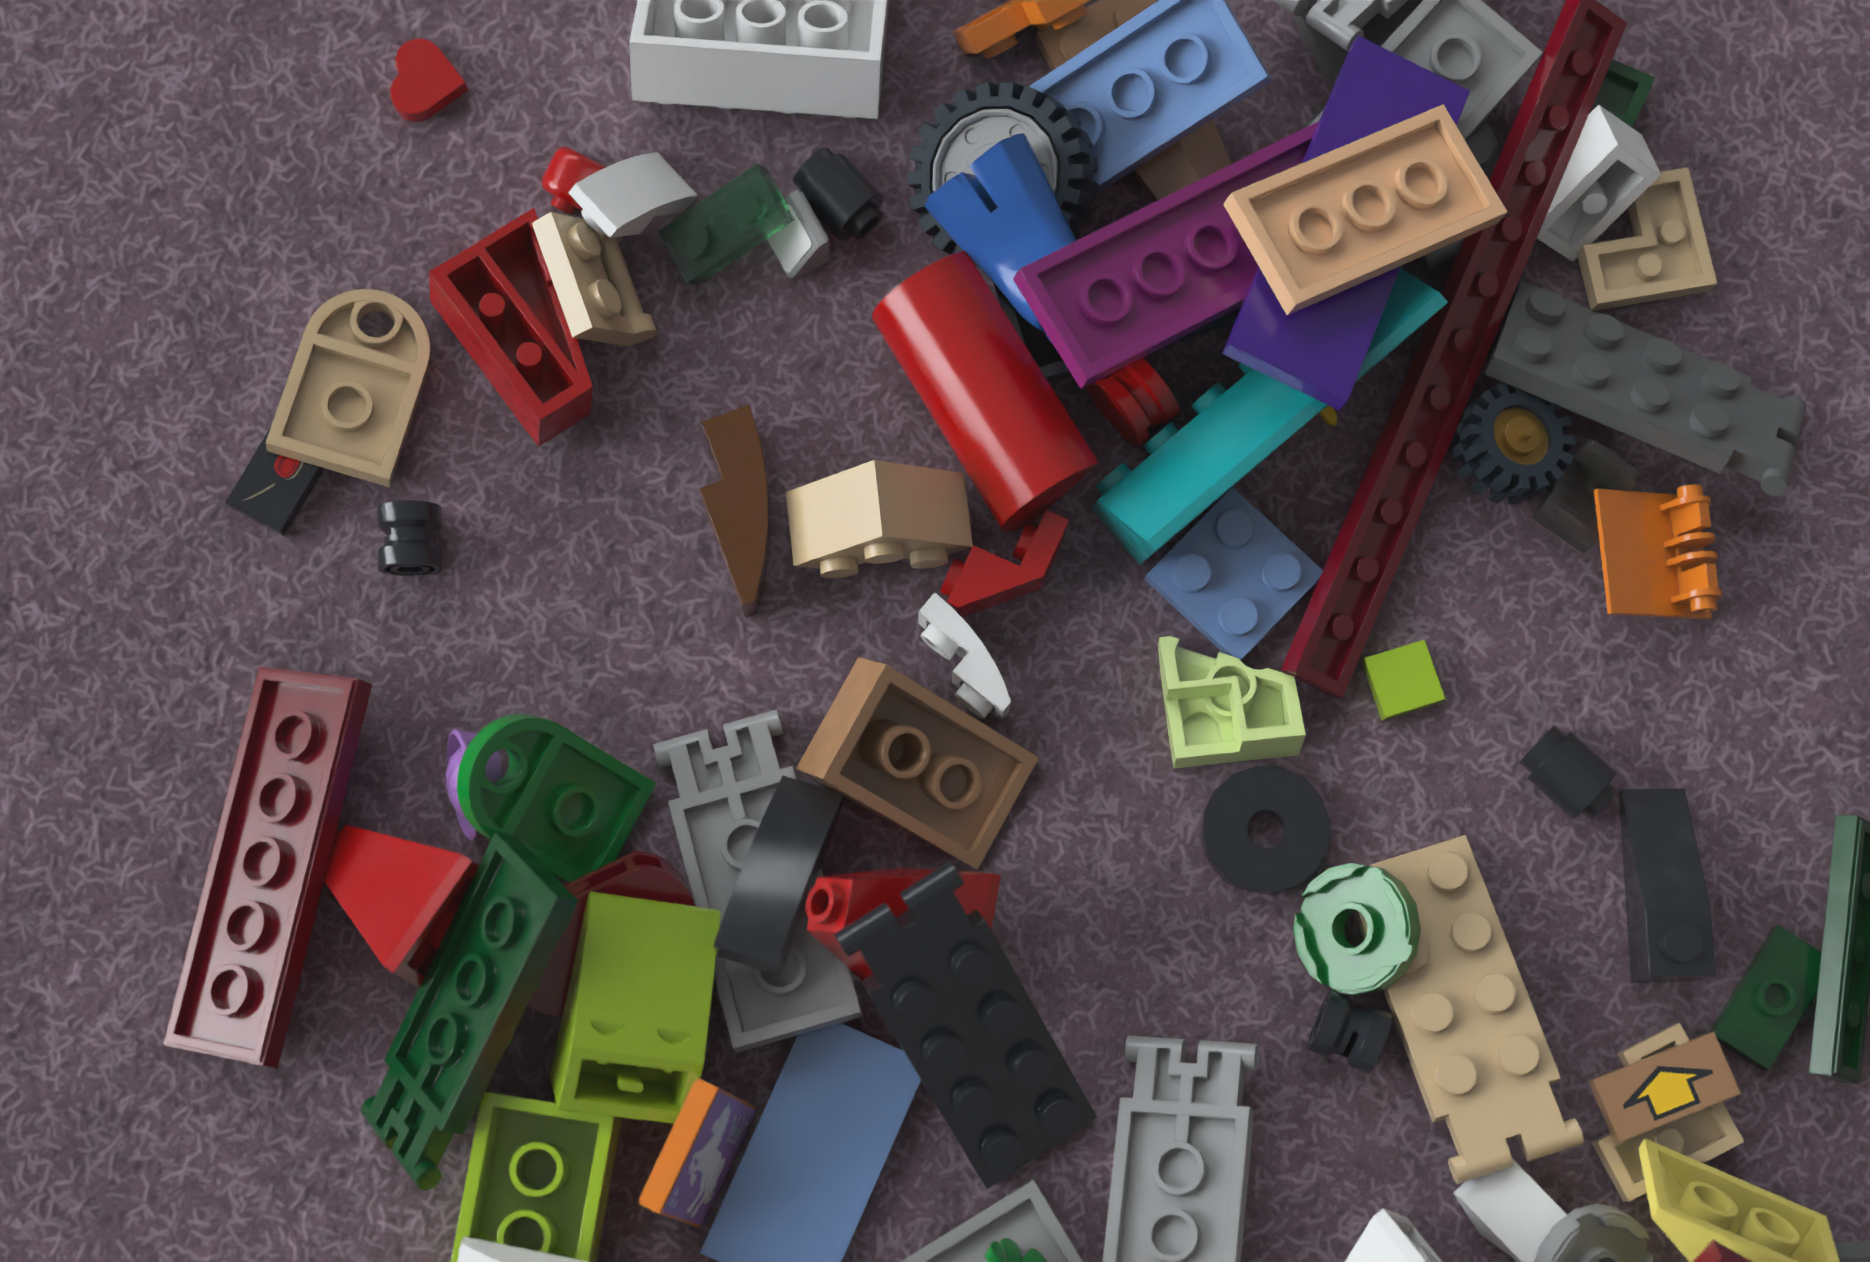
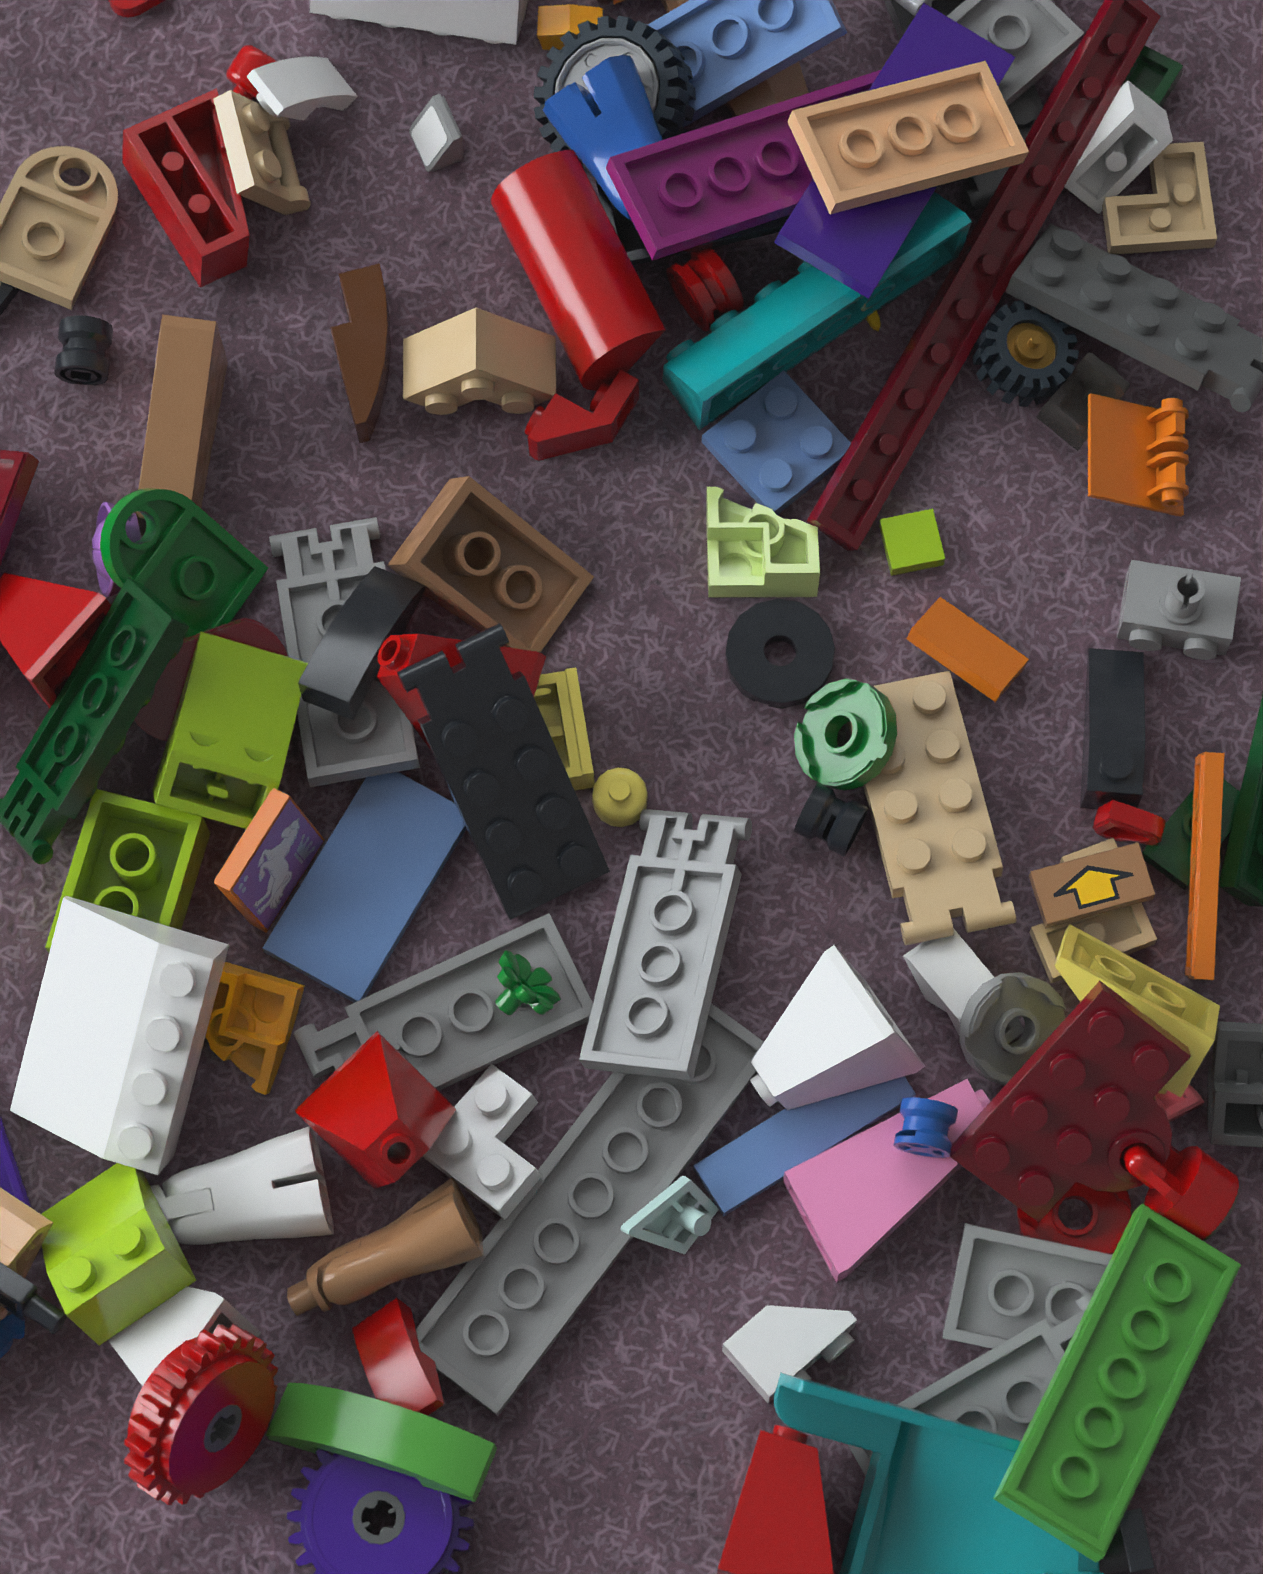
camera: 10 degrees right, 5 degrees down
(535, 610) = (183, 407): none -> medium nougat slope
(726, 225) = (377, 119): clear green plate -> none
(839, 194) = (476, 103): black brick -> none
(929, 86) = (559, 19): none -> light orange piece
(976, 675) = (546, 498): white slope -> none
(1026, 942) = (563, 713): none -> light yellow hinge
(1098, 1024) = (619, 797): none -> light yellow piece
(1483, 806) = (967, 649): none -> orange tile
(1570, 773) = (1043, 627): black brick -> none
(1695, 1005) = (1128, 824): none -> red tile
(1723, 736) = (1178, 609): none -> light grey brick
(1794, 1053) = (1204, 866): none -> orange tile

